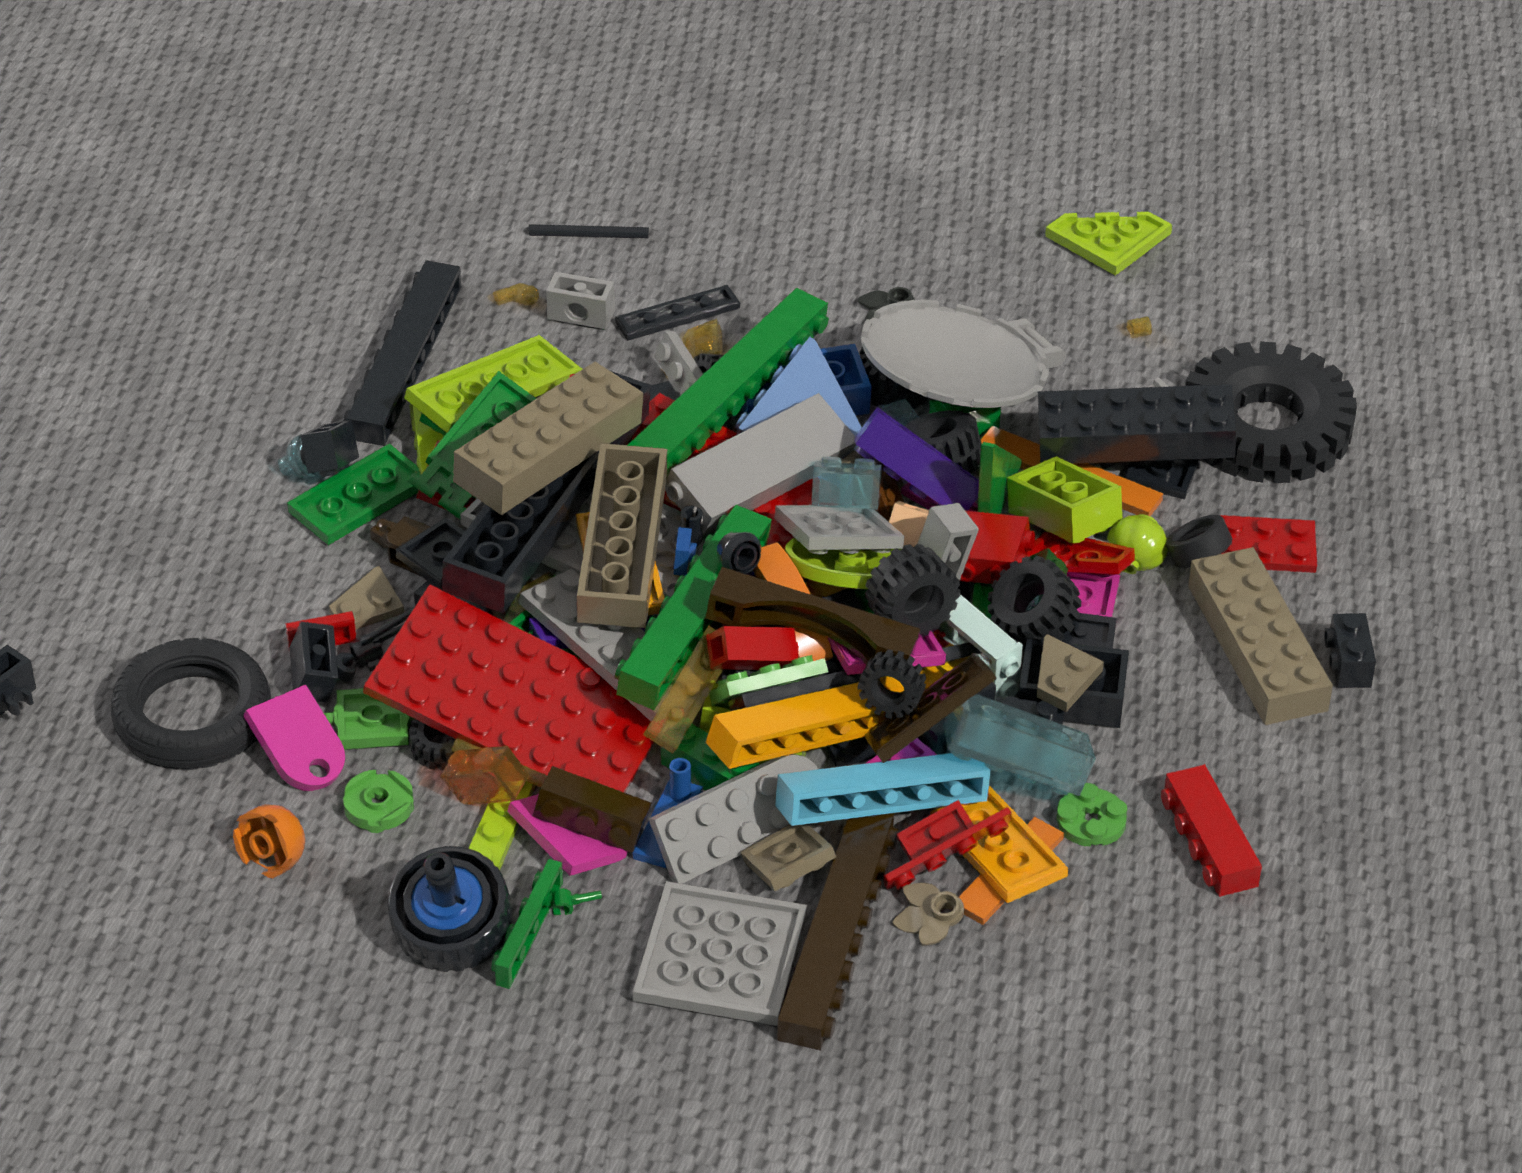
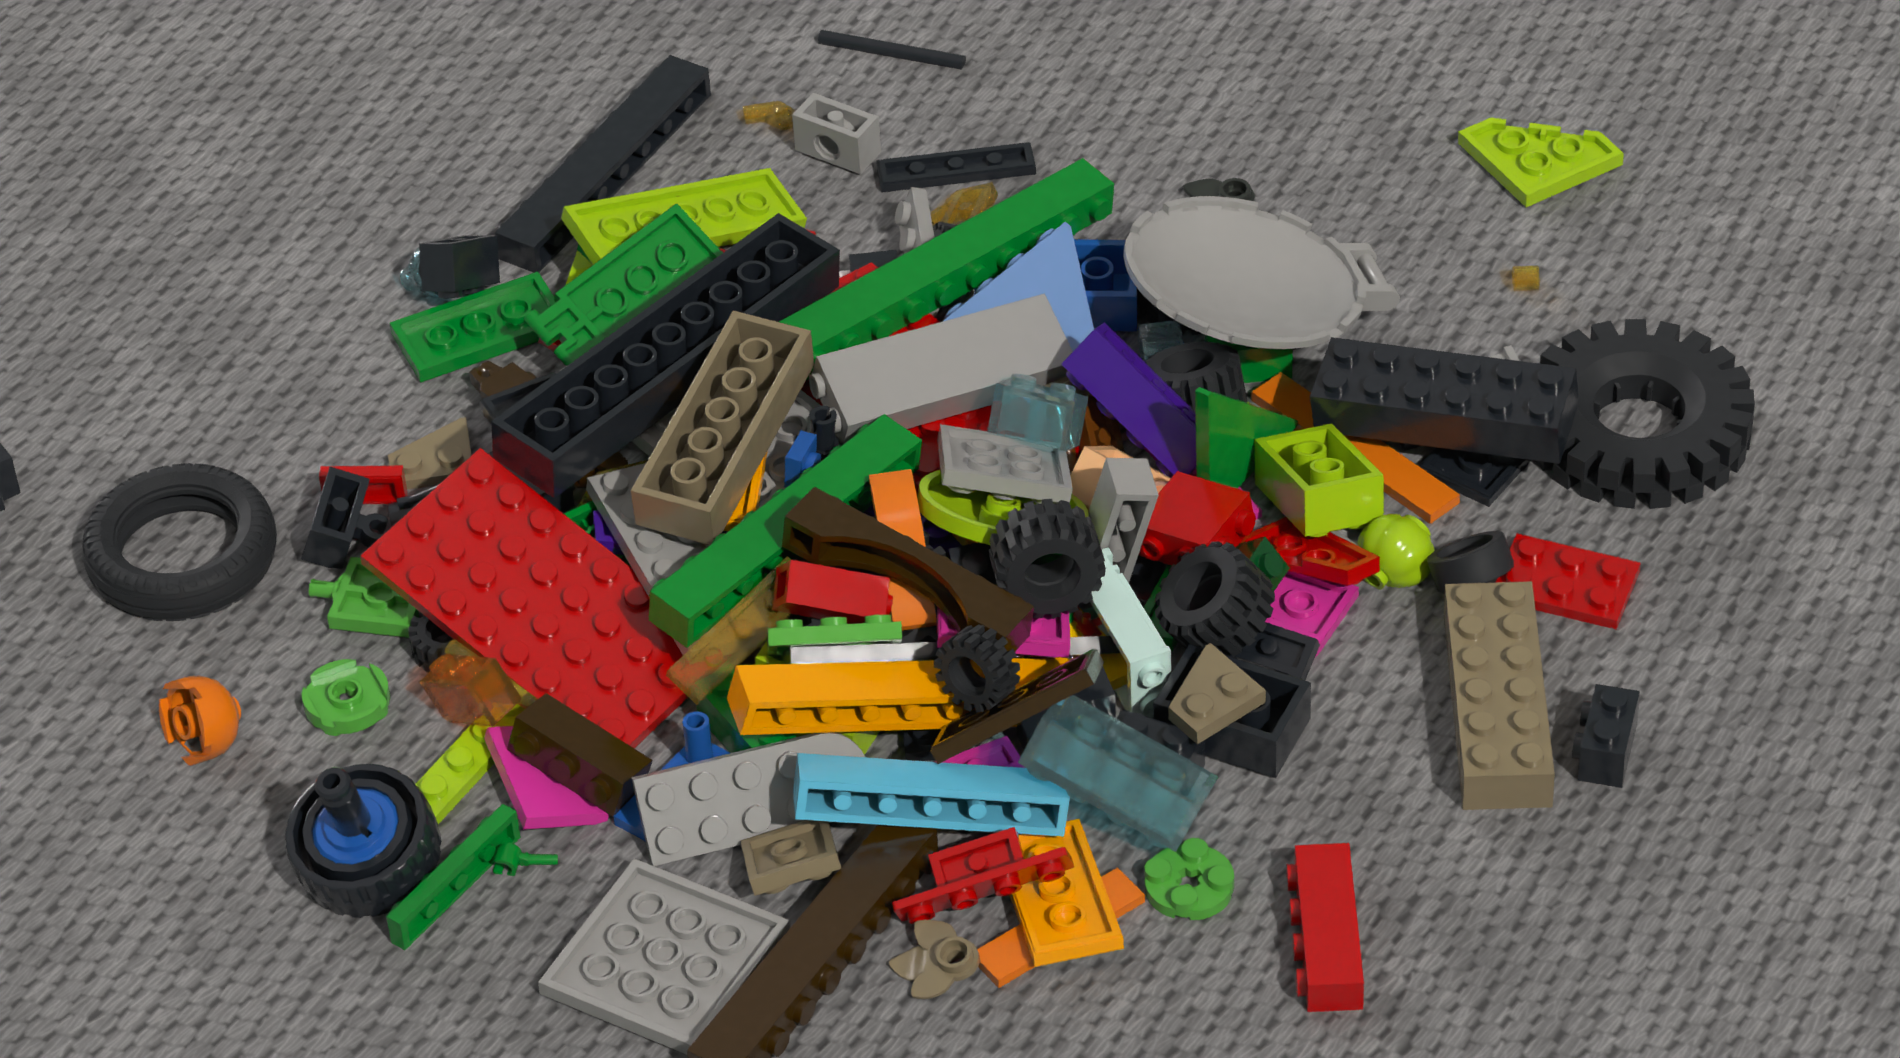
camera: 20 degrees right, 0 degrees up
(296, 737) = (279, 603): dark pink tile -> none
(547, 437) = (675, 292): dark tan brick -> none
(739, 551) = (852, 474): black cone -> none

